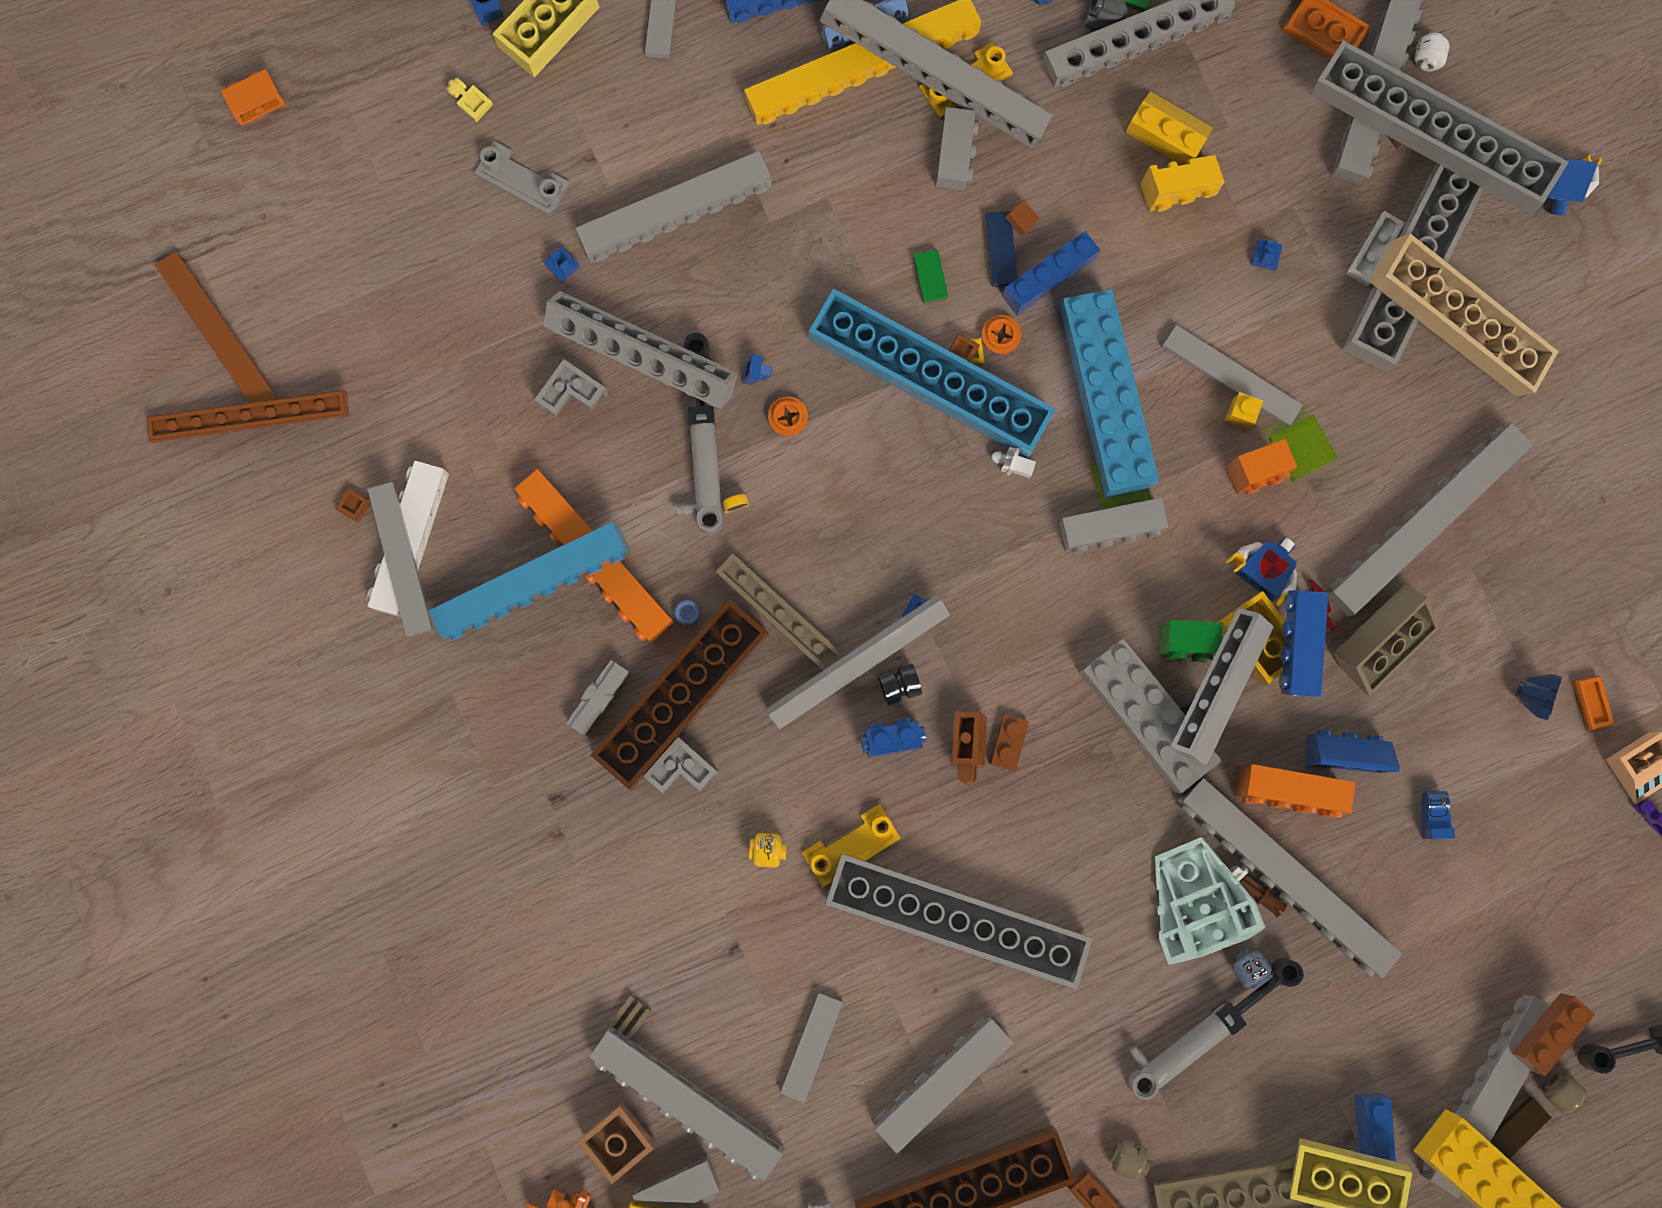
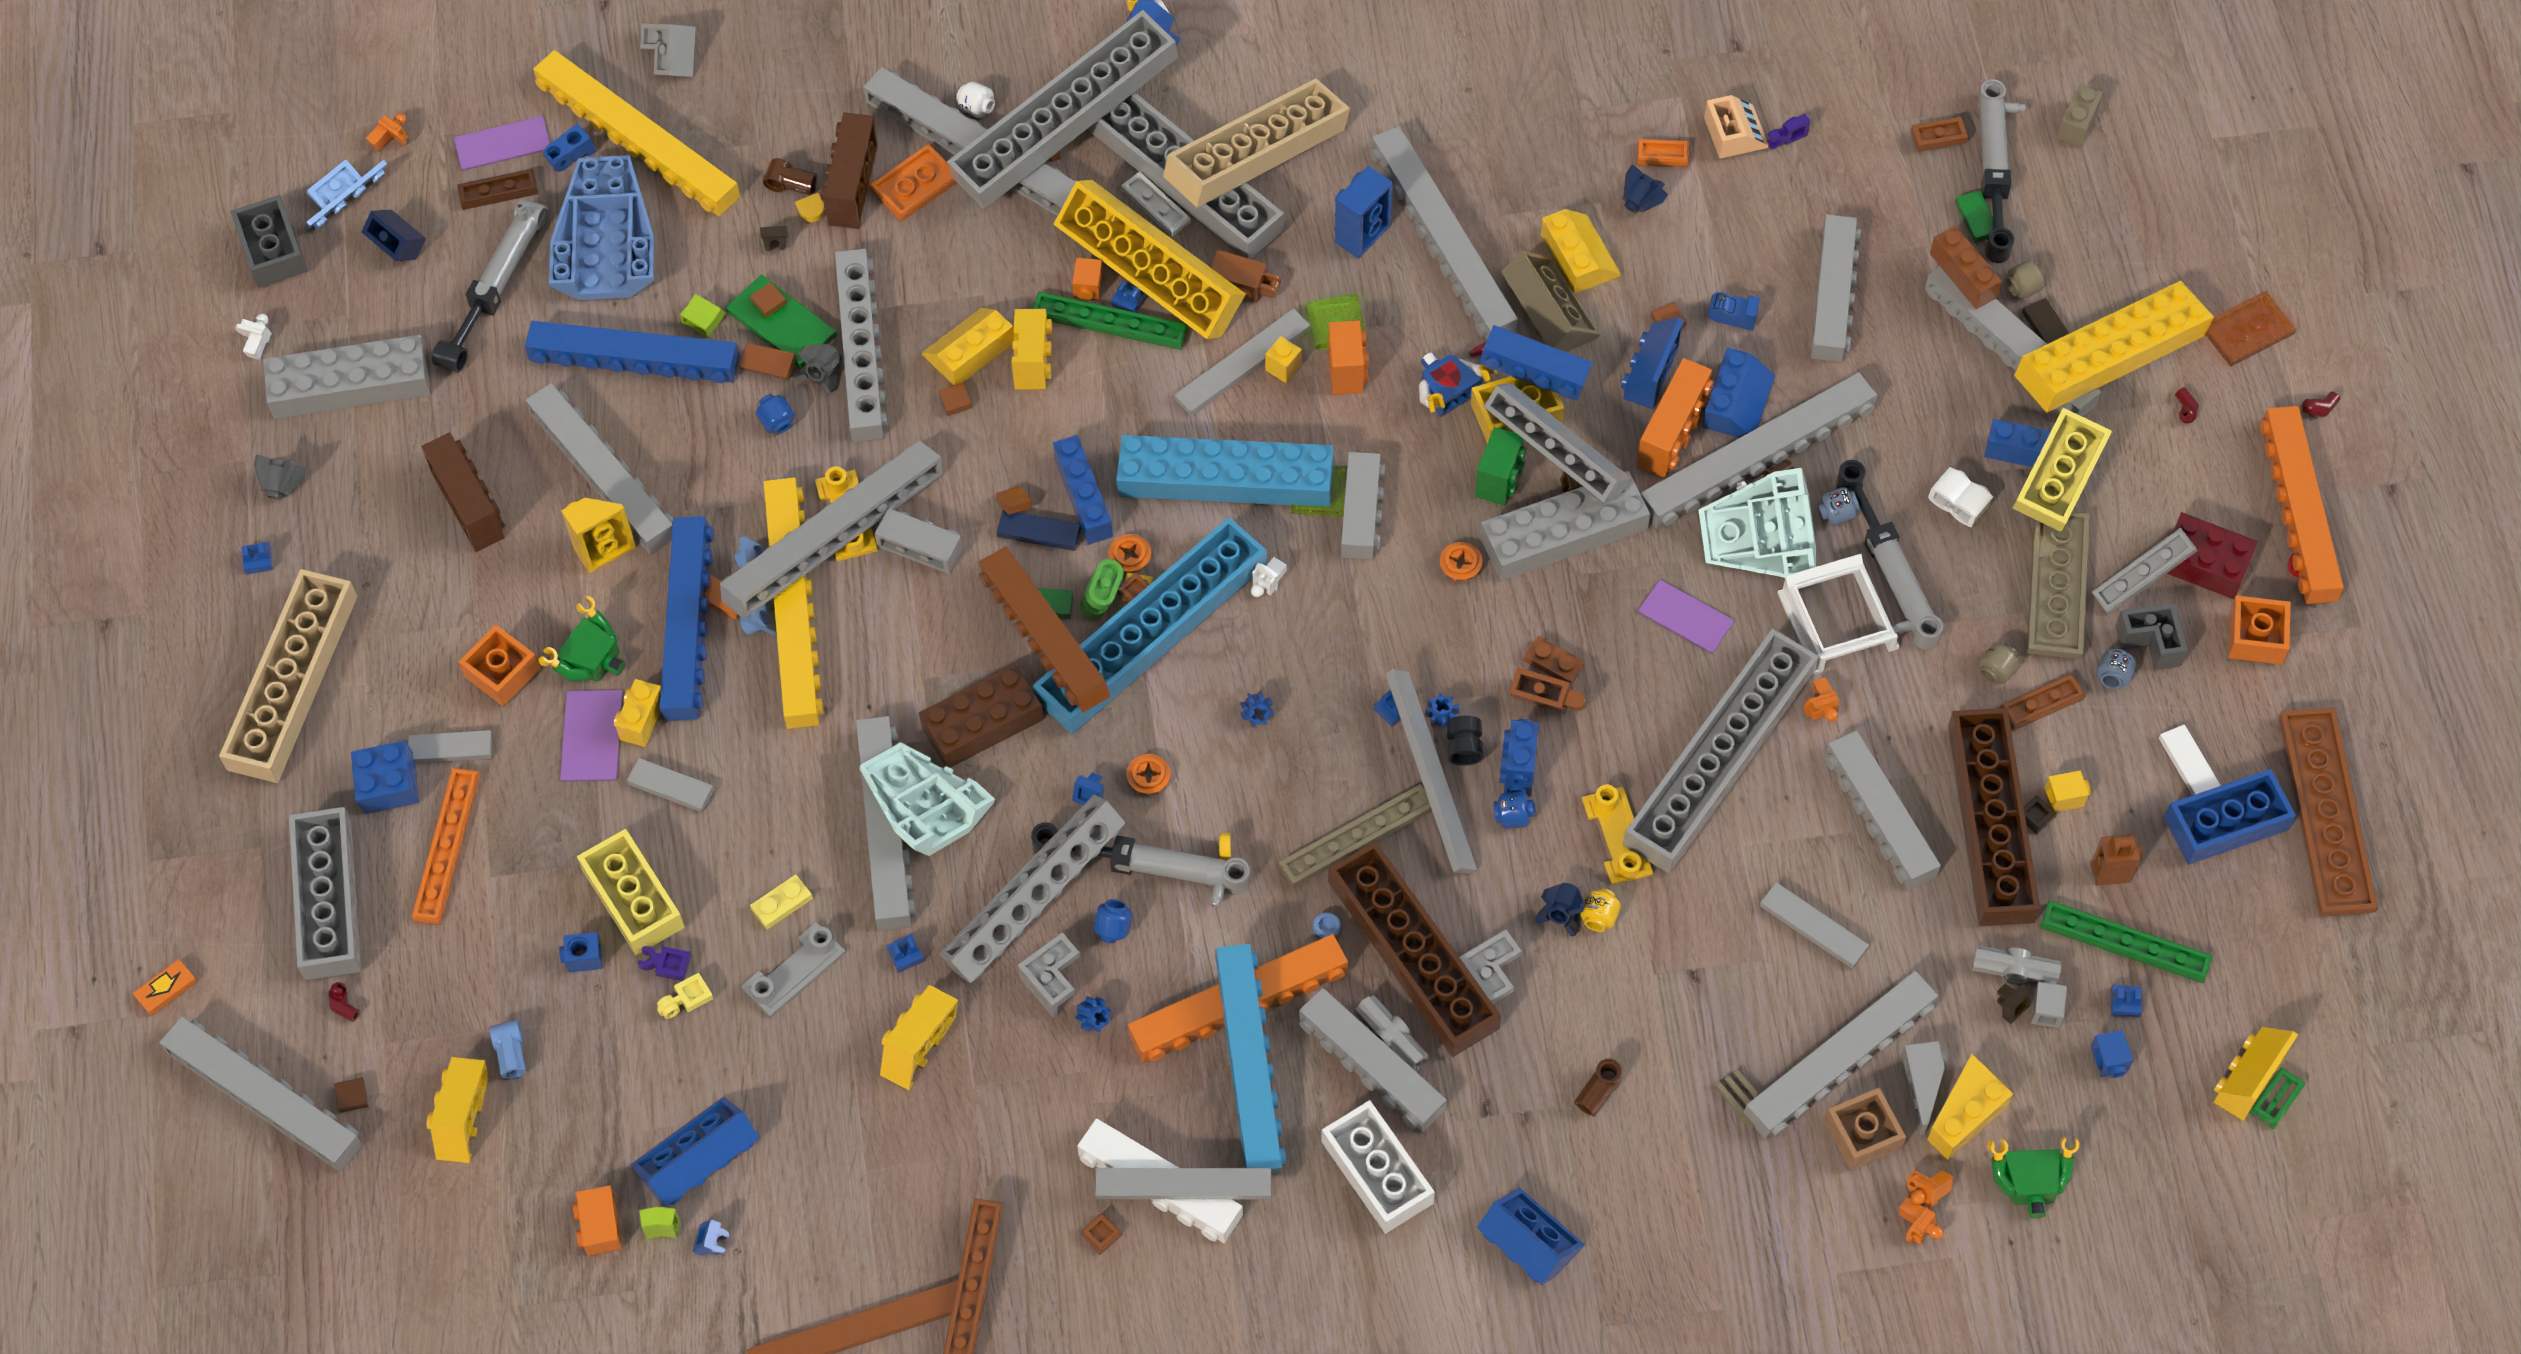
camera: 65 degrees left, 20 degrees down
(261, 187) = (707, 1238): none -> tile
(262, 145) = (659, 1222): none -> lime piece
(333, 152) = (695, 1151): none -> blue slope
(442, 869) = (1529, 1236): none -> blue slope
(465, 720) = (1377, 1166): none -> white brick
(485, 296) = (916, 1034): none -> yellow wedge
(496, 75) = (669, 964): none -> dark purple plate
(544, 437) = (1093, 1014): none -> blue gear
(567, 687) = (1372, 1060): none -> light grey brick
(580, 148) = (781, 902): none -> light yellow plate
(594, 892) = (1599, 1089): none -> reddish brown piece
(633, 427) = (1112, 921): none -> blue head
(697, 229) = (922, 800): none -> light aqua wedge
(761, 815) = (1562, 906): none -> dark blue brick
(798, 255) = (981, 716): none -> reddish brown brick
(844, 746) = (1514, 810): none -> blue head
(877, 491) = (1257, 716): none -> blue gear
(888, 281) = (1043, 629): none -> dark orange brick
(932, 653) = (1441, 710): none -> blue gear
(953, 319) = (1101, 589): none -> bright green brick
(1039, 1006) = (1824, 703): none -> orange piece
(1093, 623) = (1453, 553): none -> orange gear
(1094, 852) = (1686, 616): none -> medium lavender piece
(1111, 135) = (955, 399): none -> dark orange tile
(1116, 962) = (1803, 624): none -> white piece
(1237, 245) = (1112, 320): none -> green tile
(1272, 211) = (1087, 279): none -> orange brick
(1299, 1083) = (1960, 497): none -> white brick
(1307, 257) = (1149, 259): none -> yellow brick
(1319, 347) = (1247, 275): none -> dark orange brick
(1343, 844) = (1738, 394): none -> blue slope
(1409, 755) = (1667, 312): none -> dark orange tile
(1422, 436) = (1363, 211): none -> blue brick
(1455, 651) = (1578, 250): none -> yellow slope
(1494, 906) = (1834, 288): none -> light grey brick
(1625, 1026) = (1975, 215): none -> green tile

